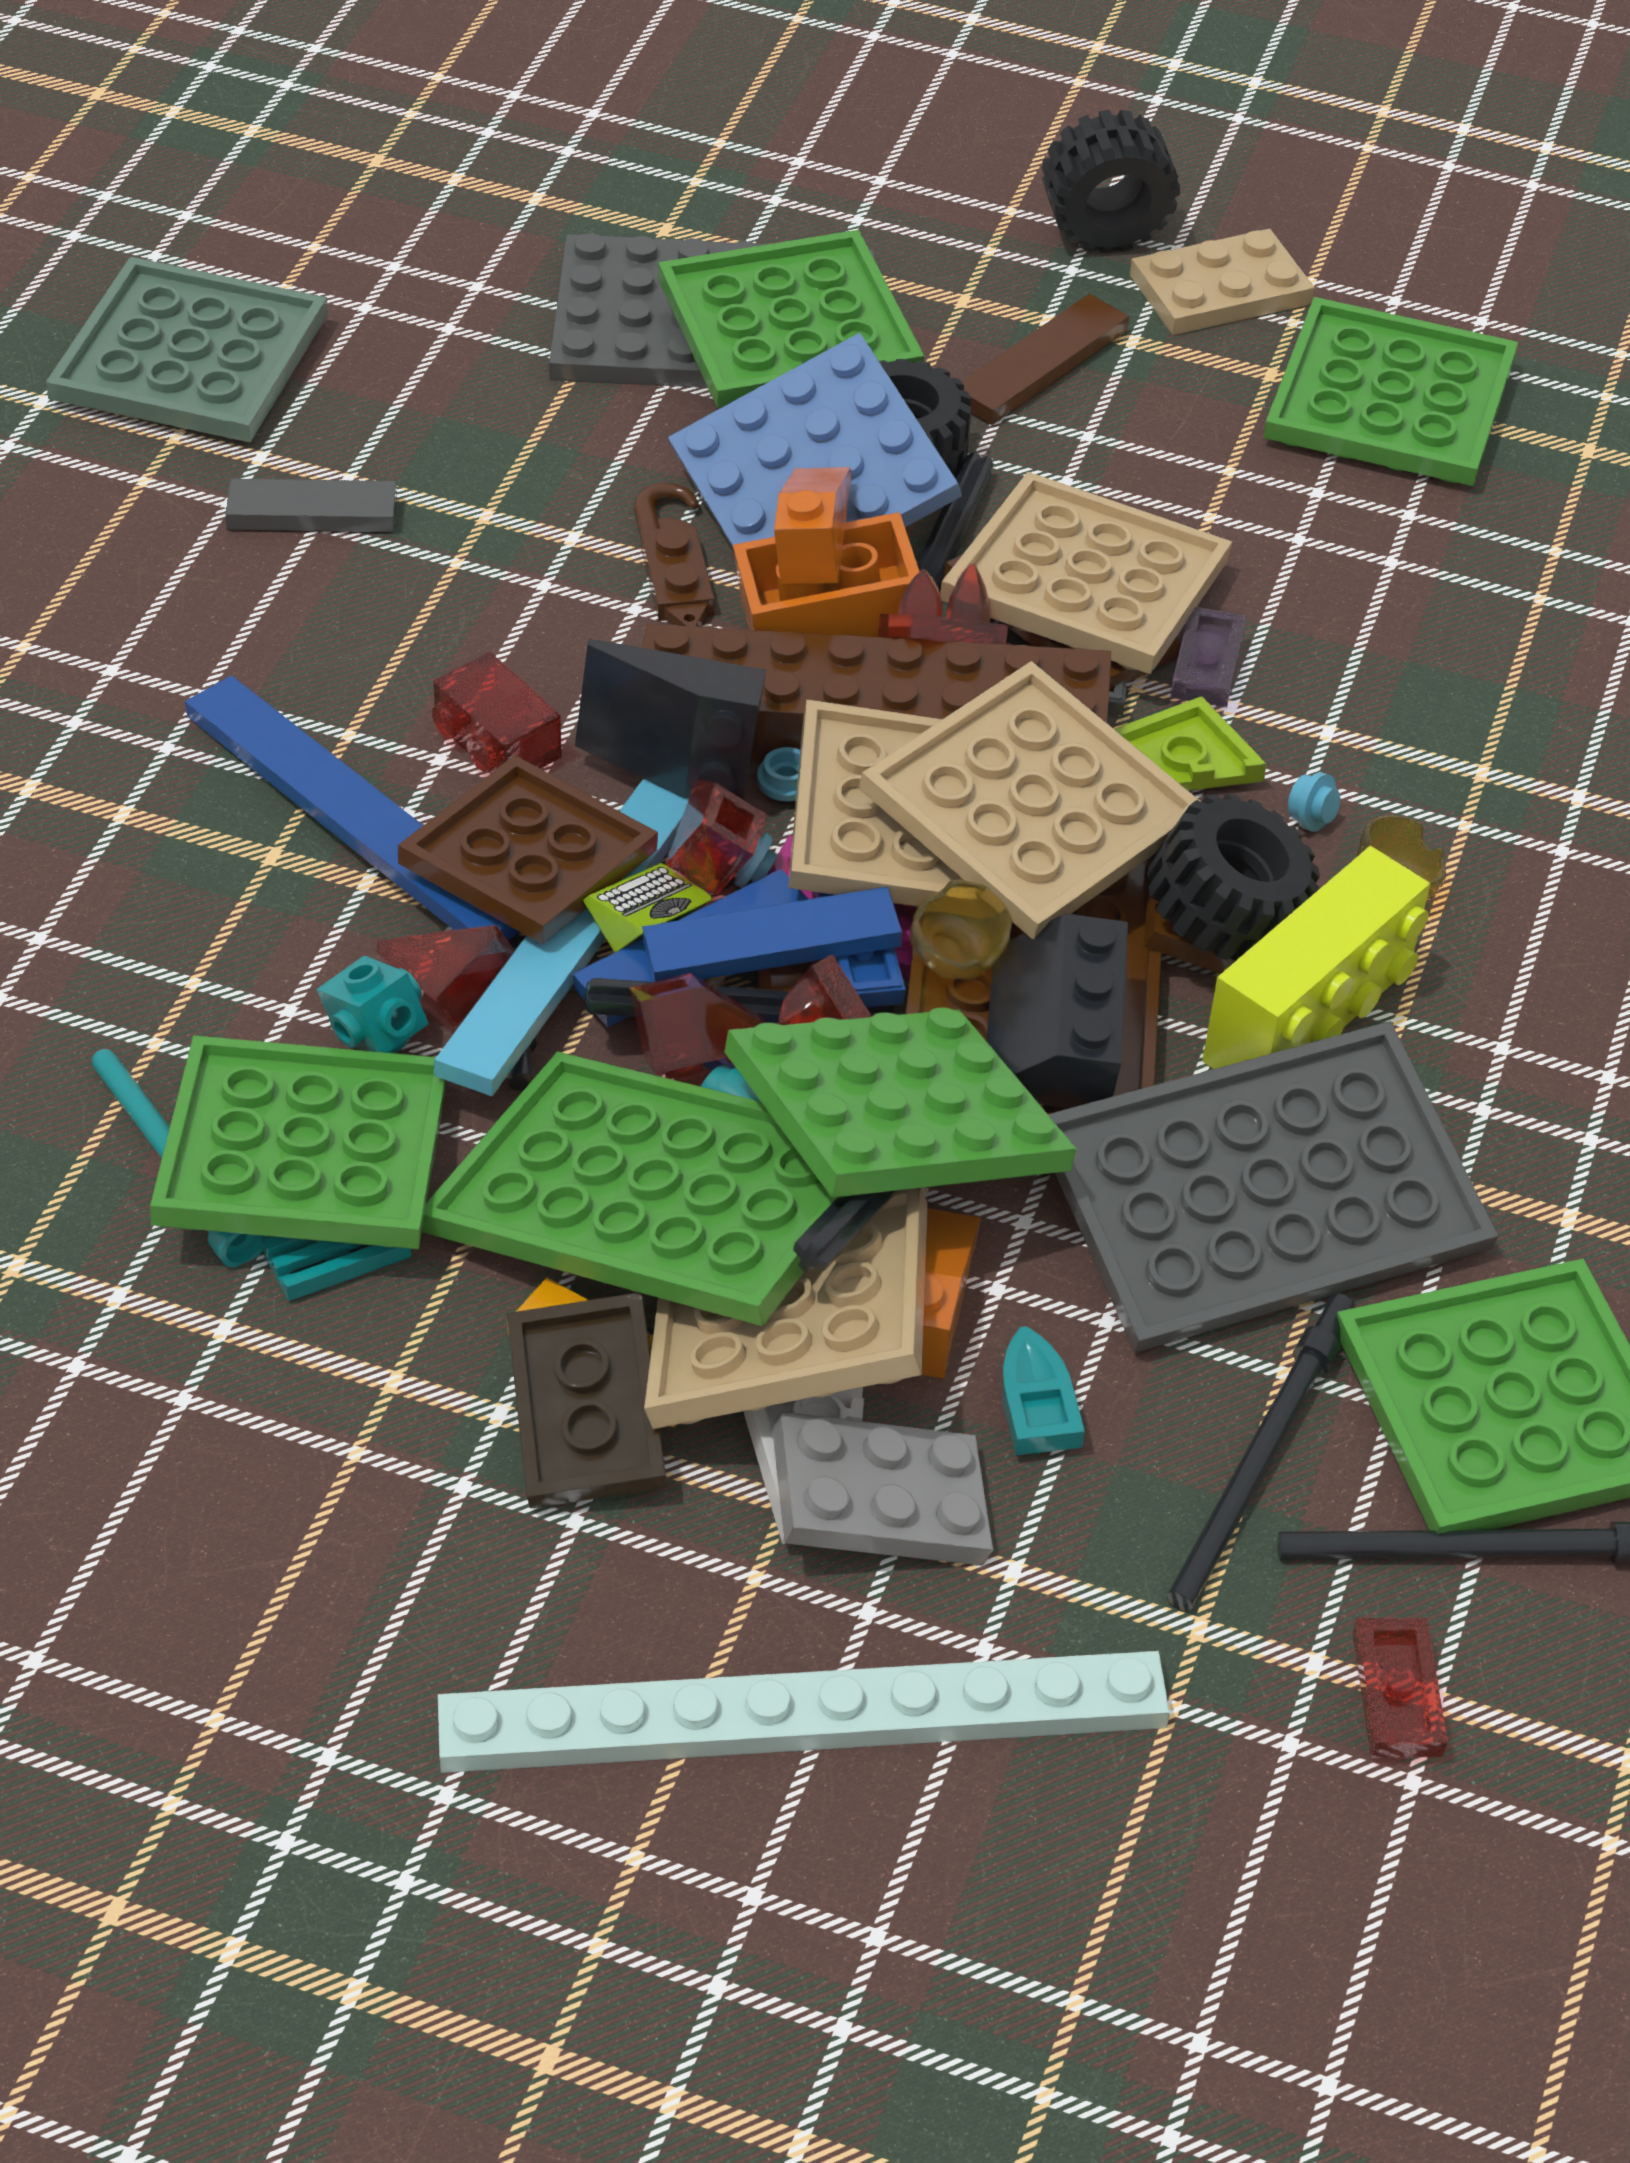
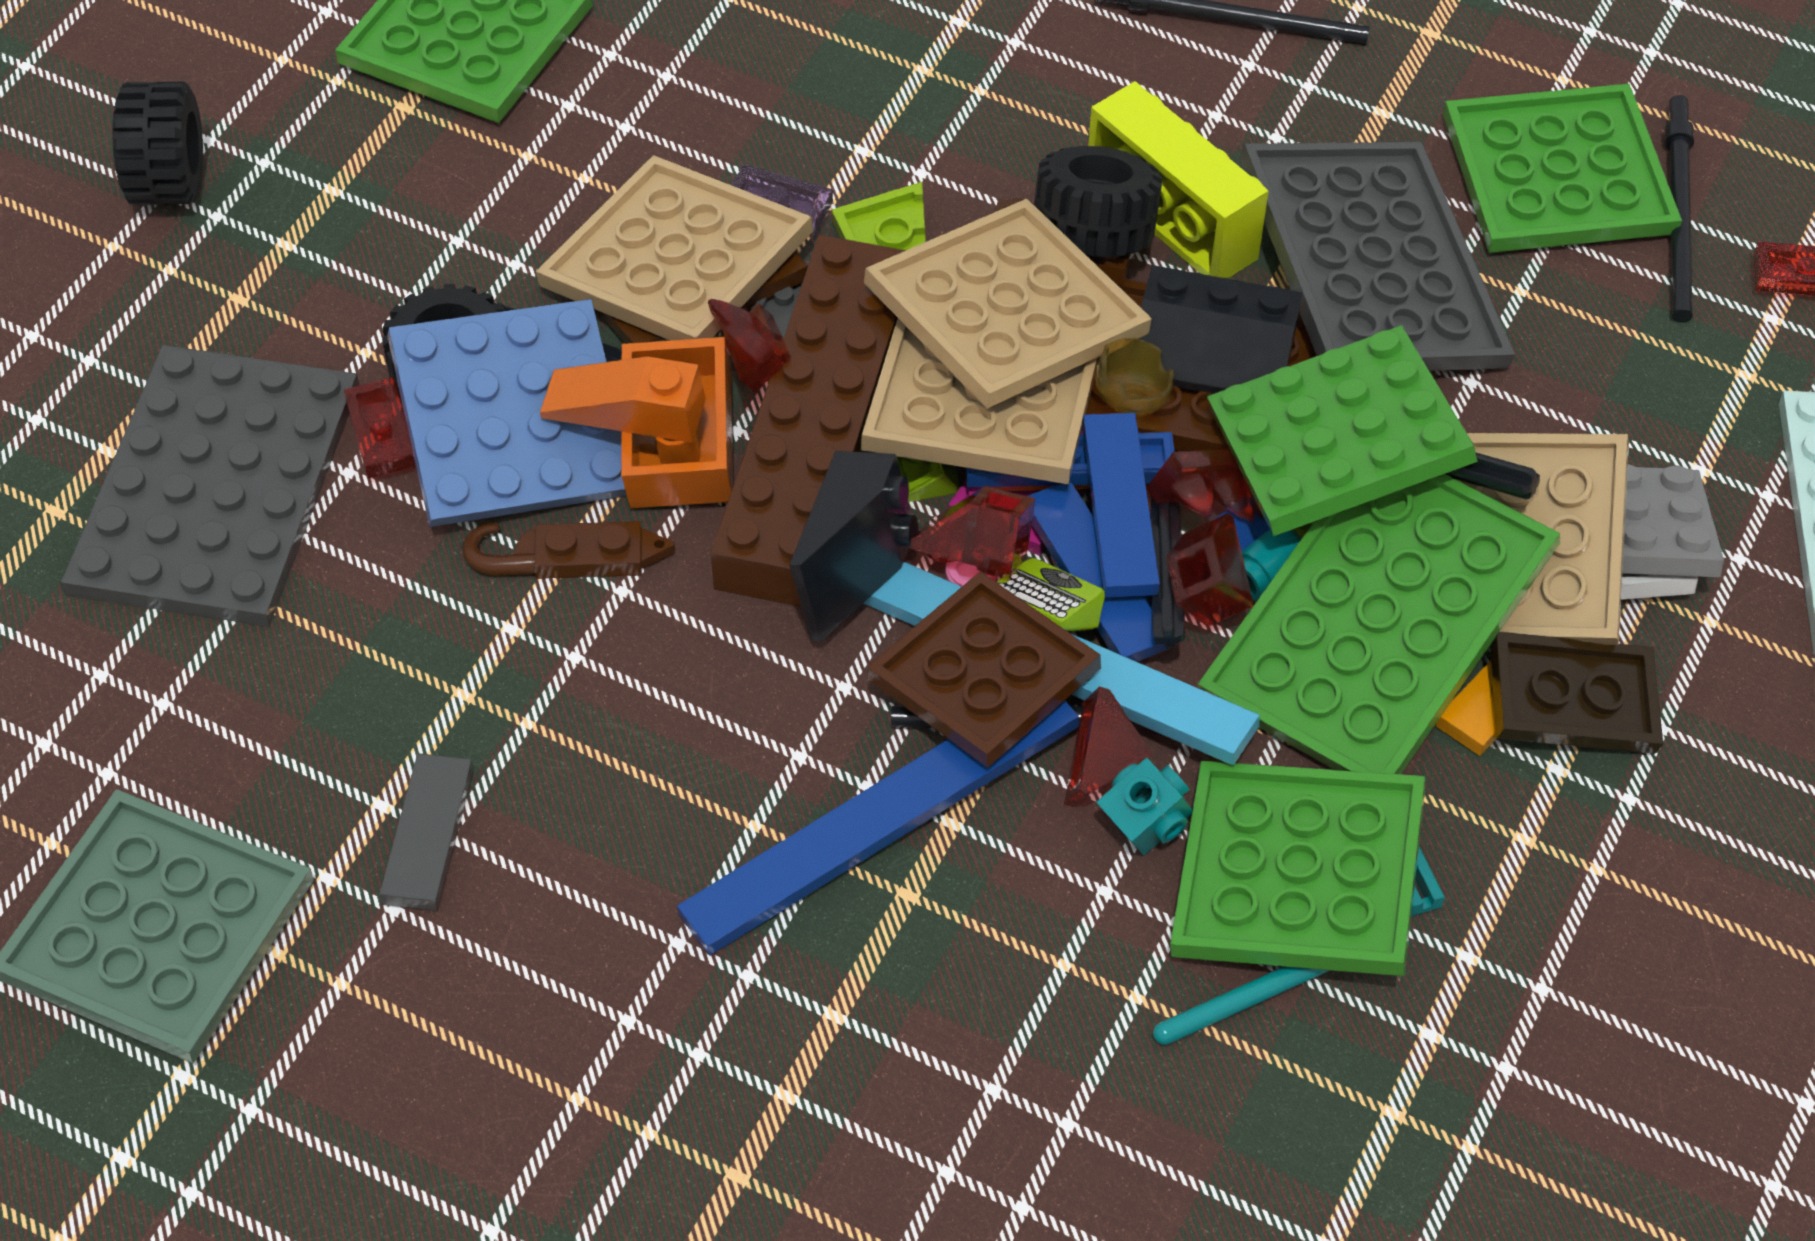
camera: 80 degrees left, 5 degrees up
(495, 715) = (780, 694): clear red brick -> none
(780, 305) = (281, 407): bright green plate -> none
(1039, 1397) = (1559, 416): teal plate -> none
(1043, 357) = (348, 248): reddish brown tile -> none
(1221, 281) = (274, 114): tan plate -> none
(1312, 1357) = (1516, 264): black bar -> none
(1314, 801) = (962, 163): medium azure plate -> none
(1404, 843) = (1044, 125): clear yellow hair -> none

